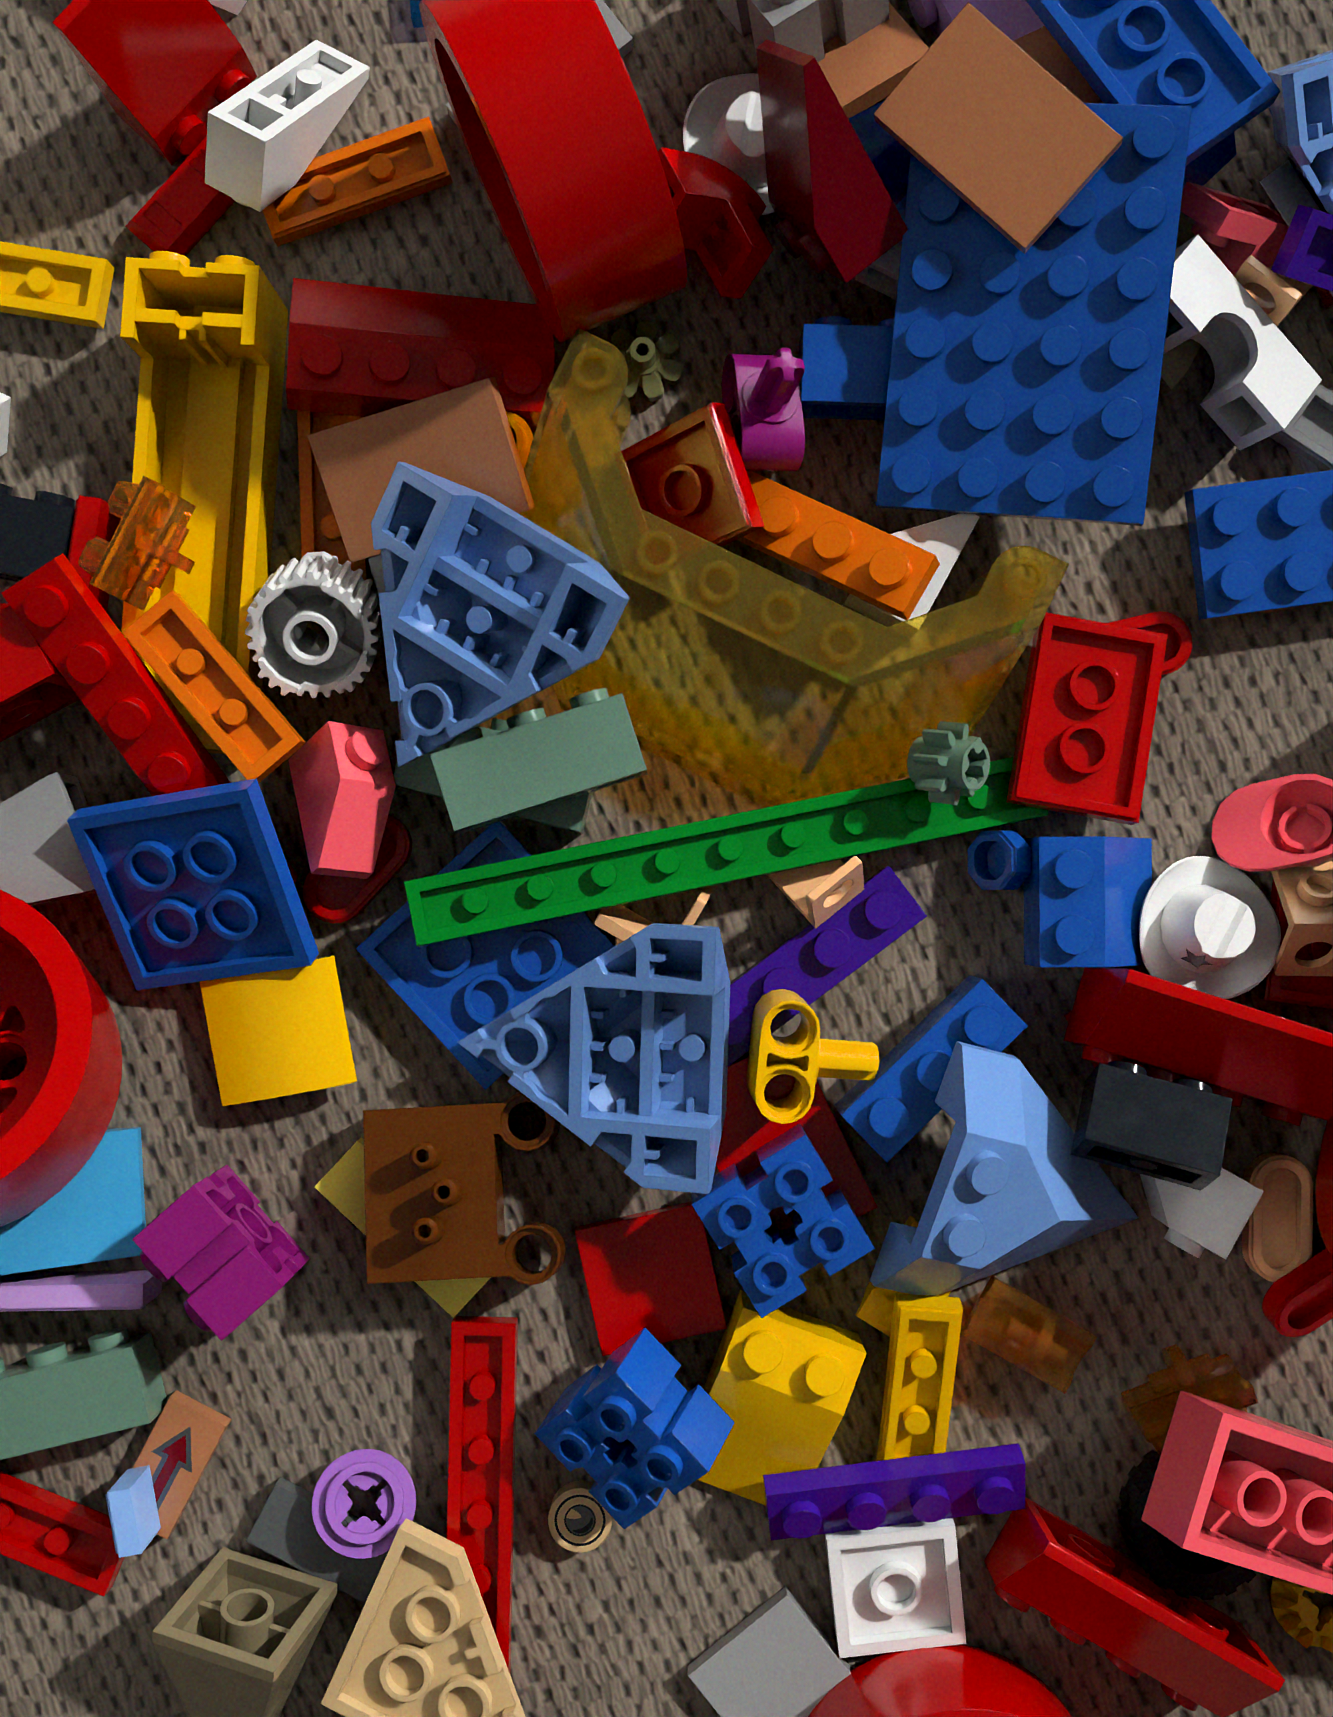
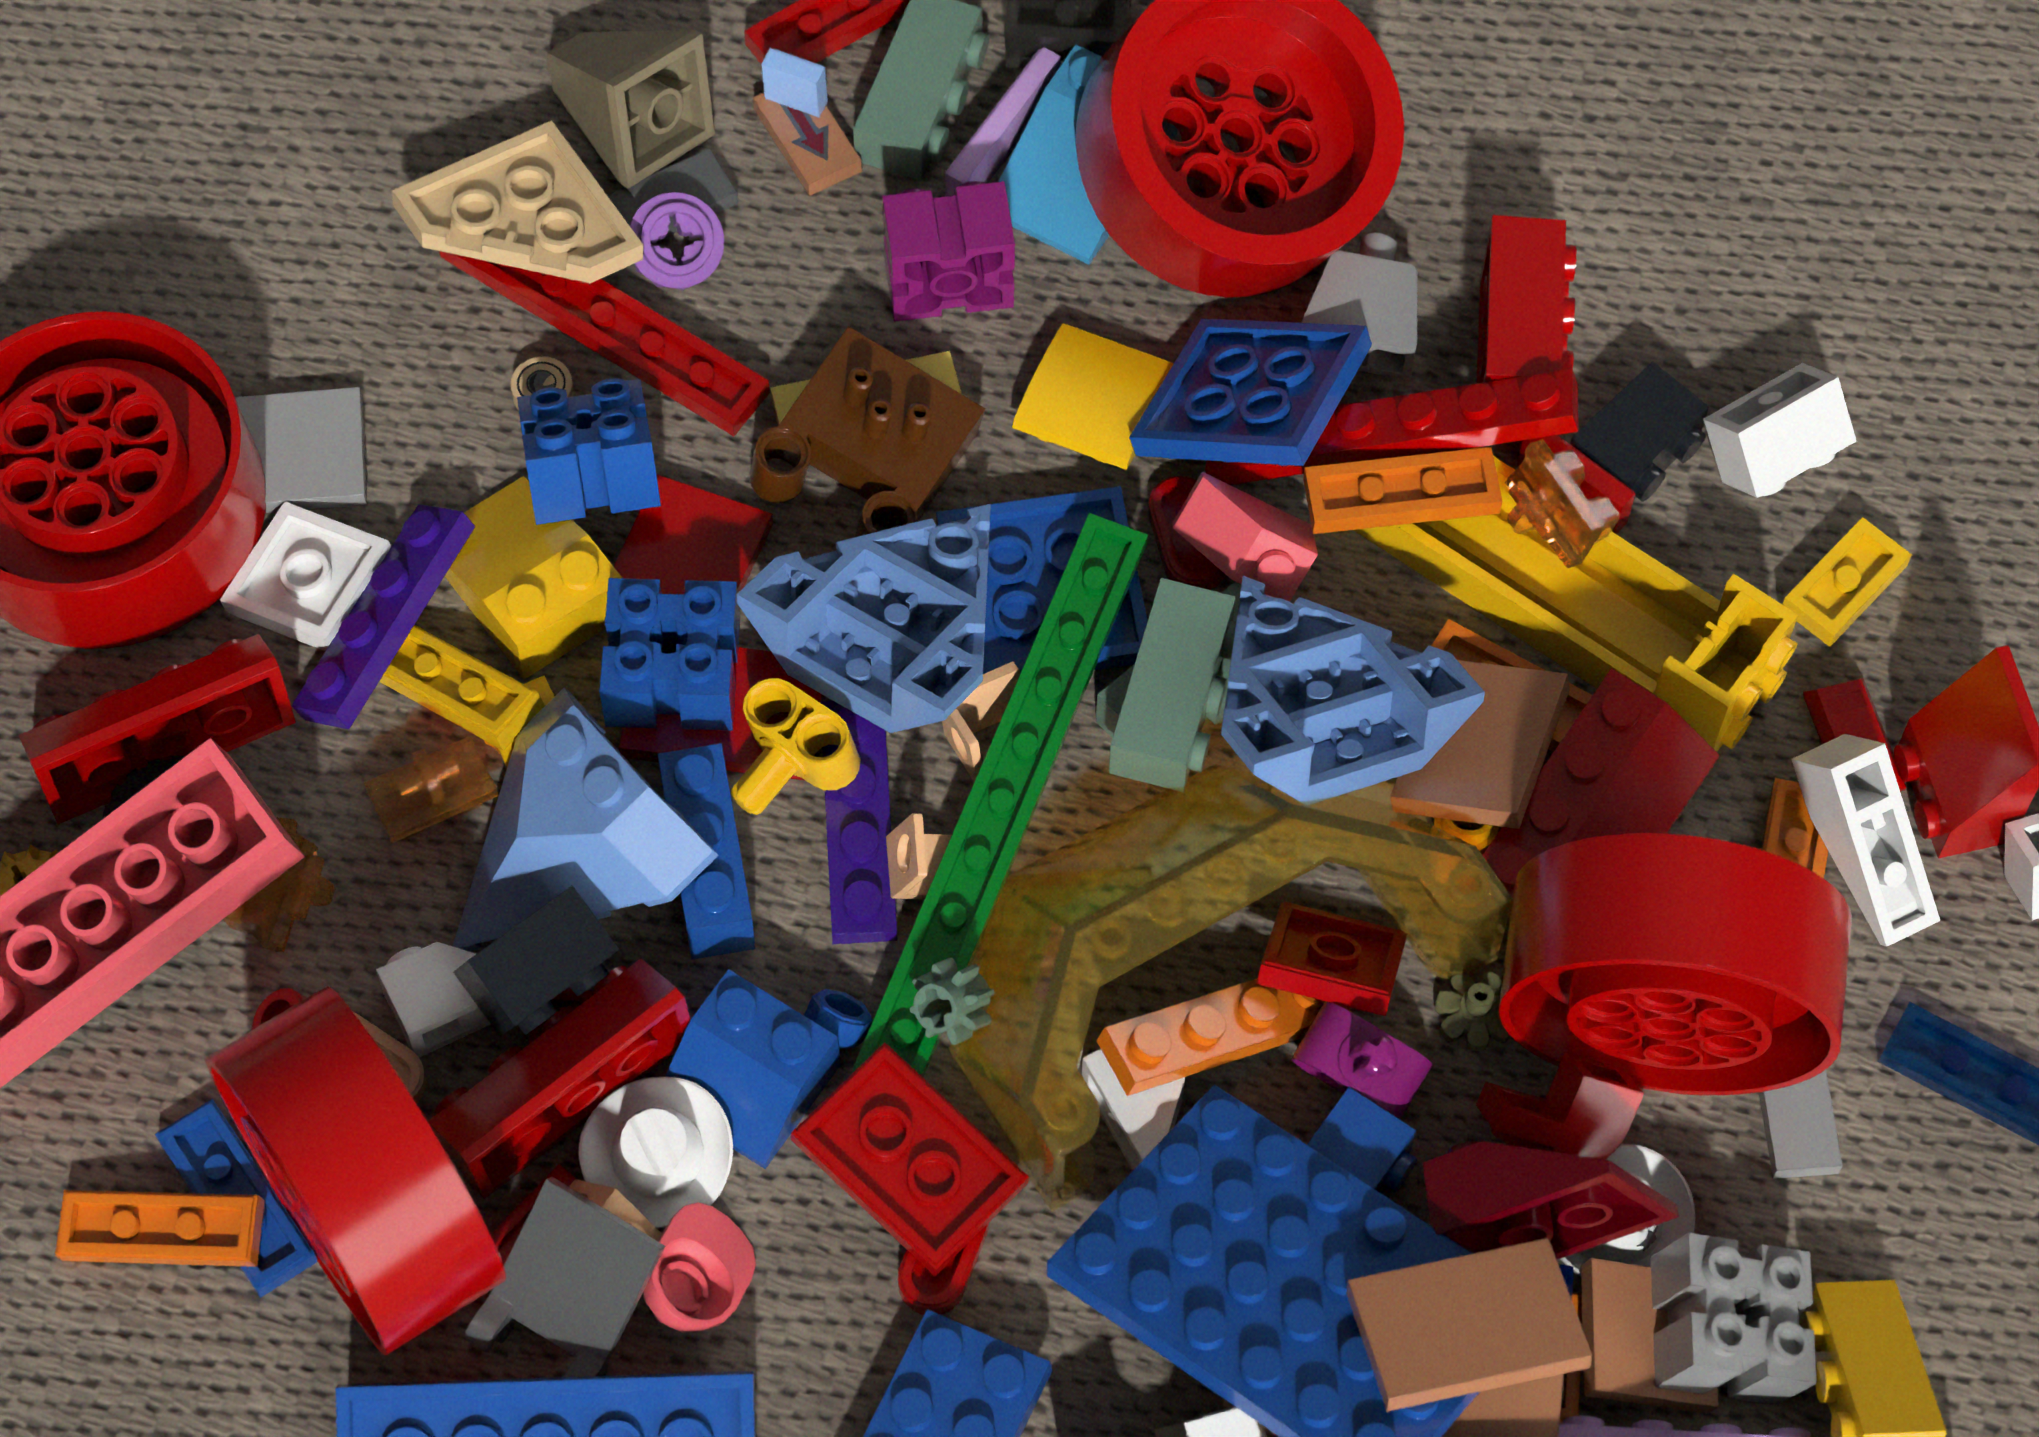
camera: 120 degrees right, 25 degrees down
(322, 593) = (1410, 589): white brick -> none

